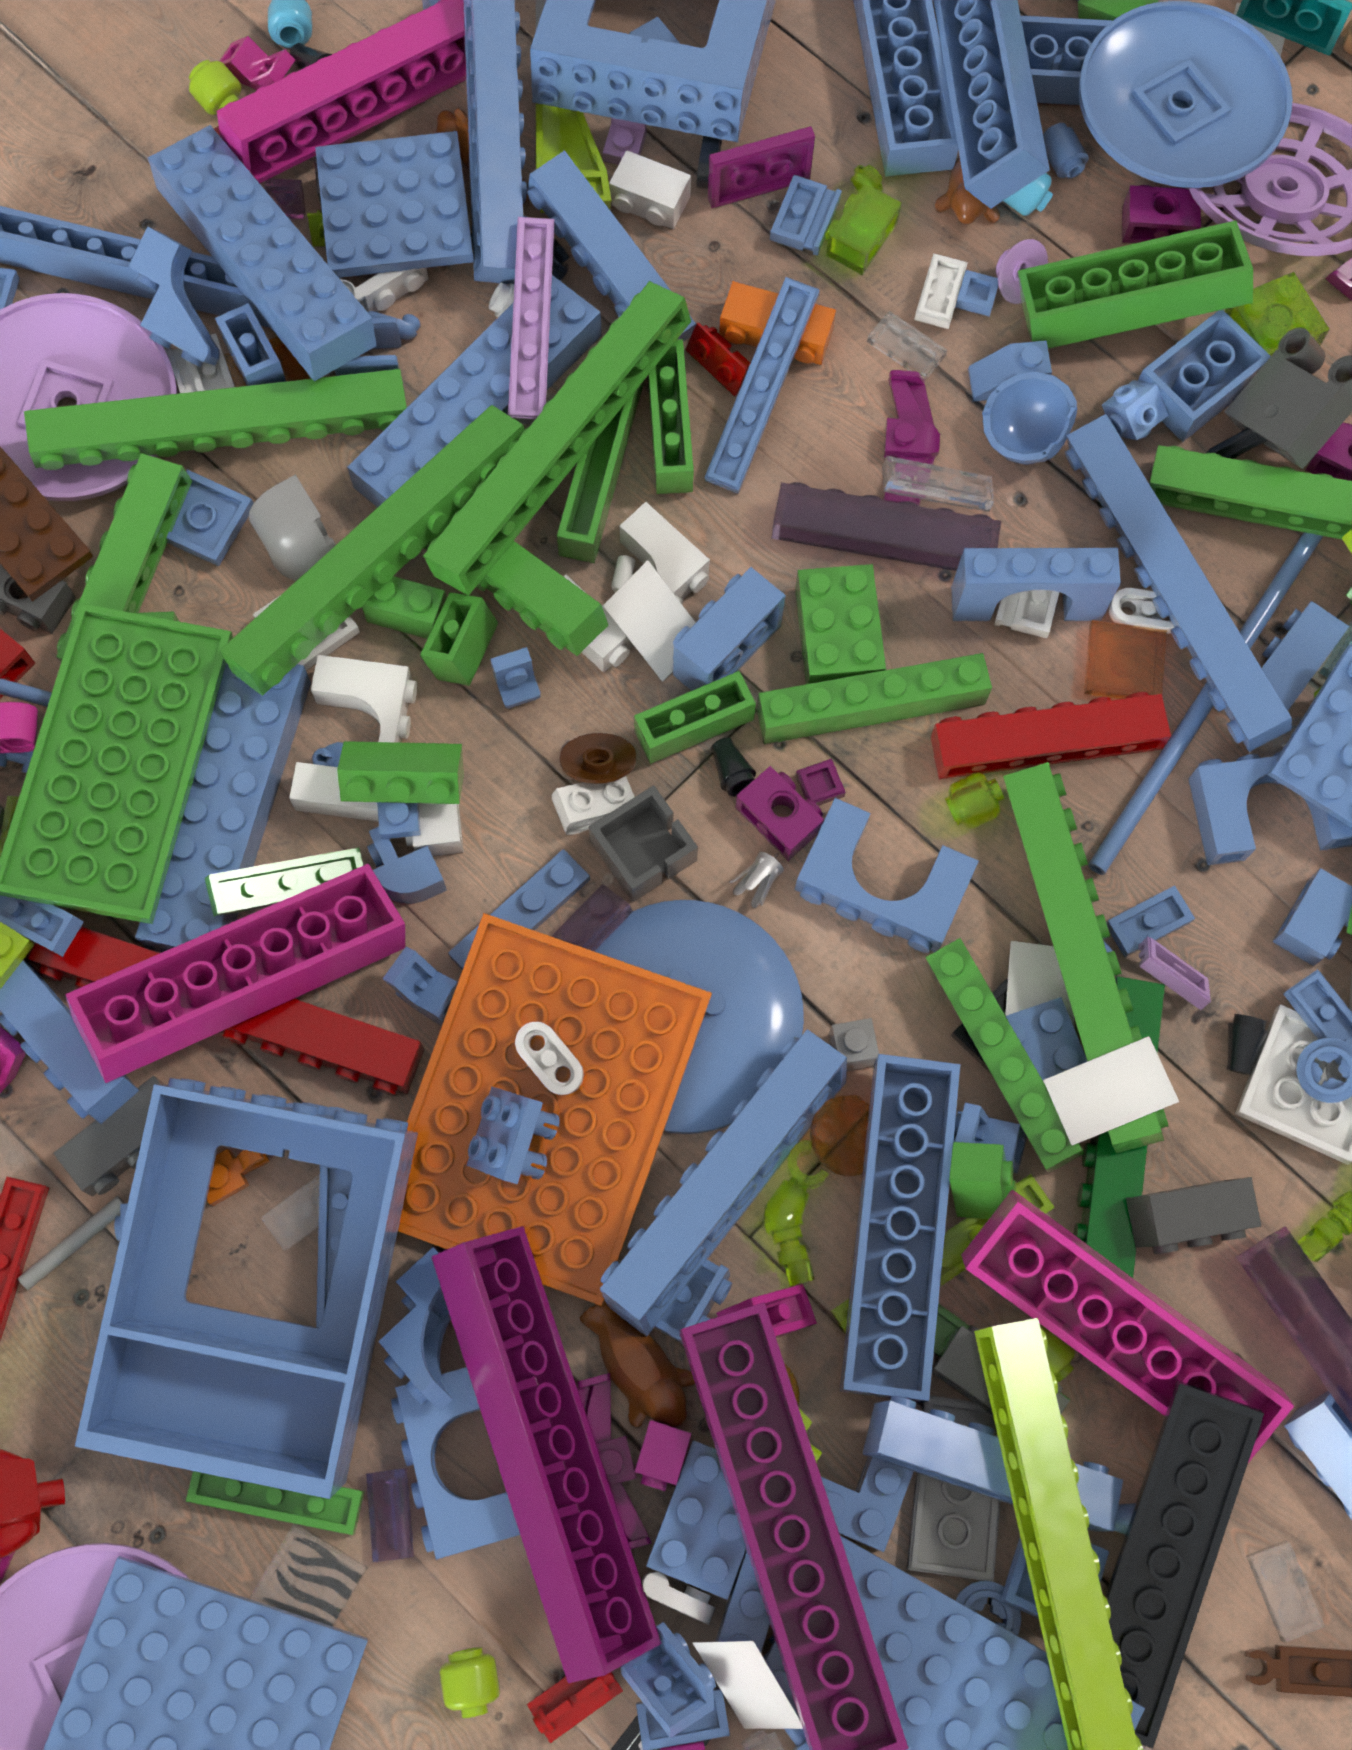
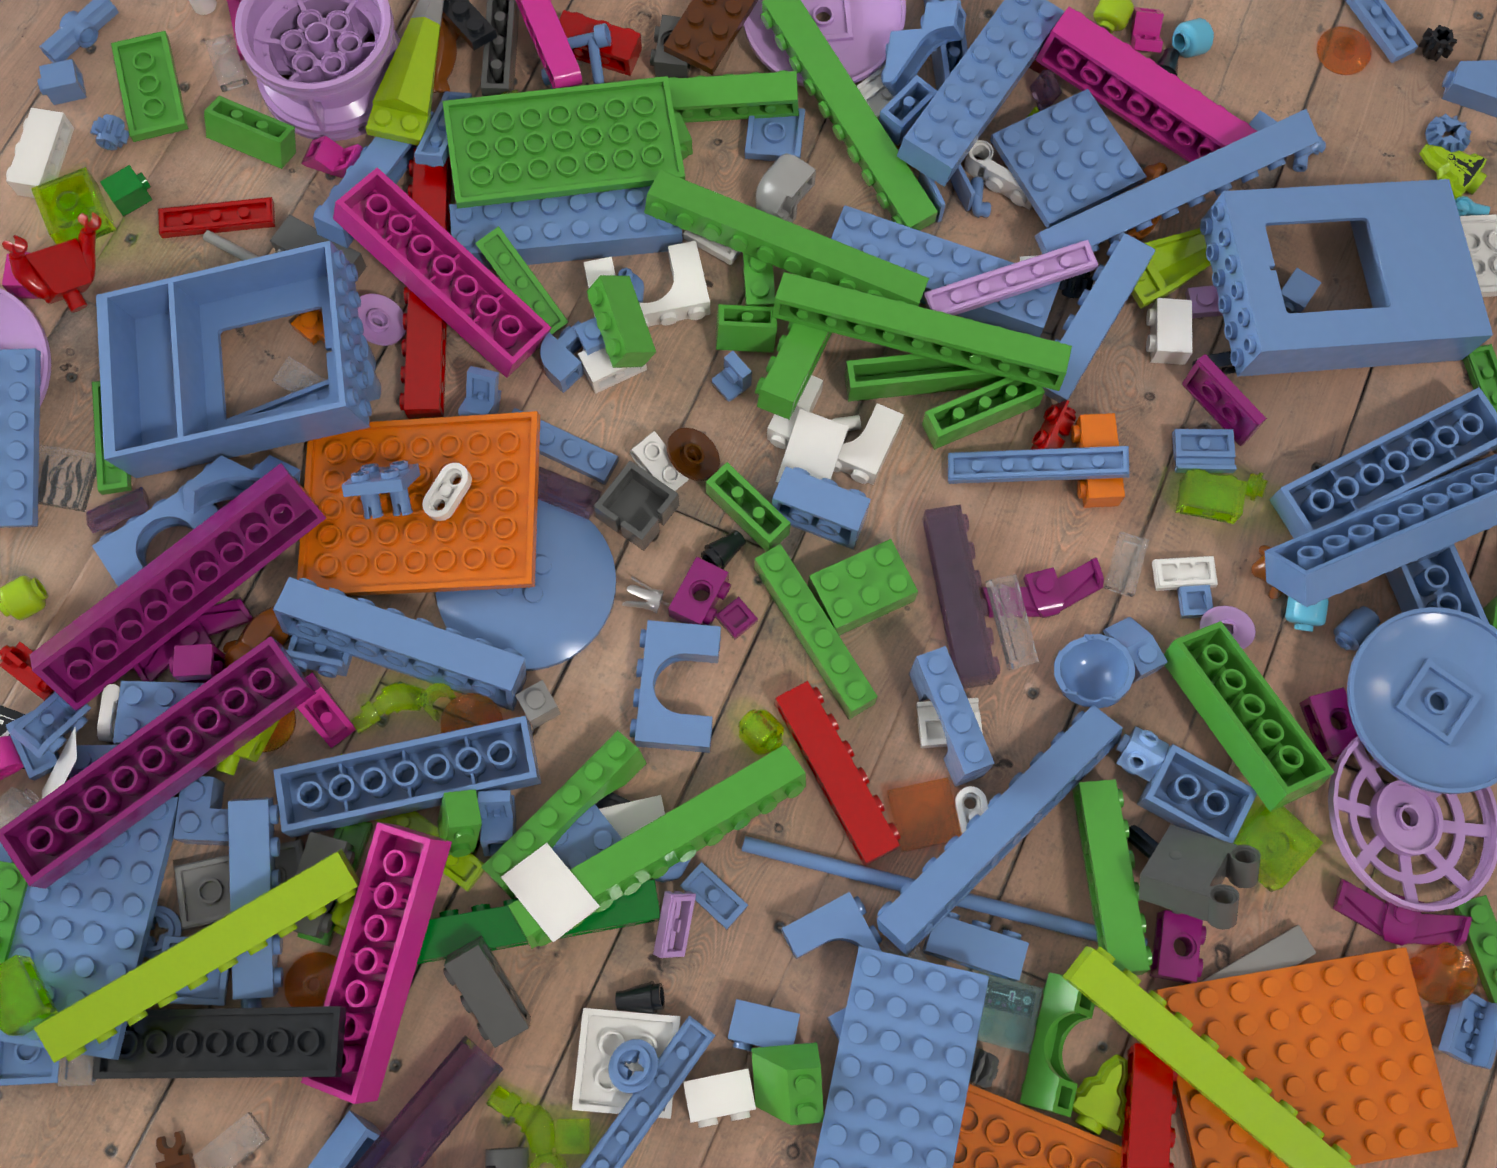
camera: 70 degrees right, 0 degrees up
(259, 1075) = (386, 315): none -> lavender dish
(1090, 1428) = (310, 966): none -> clear orange dish

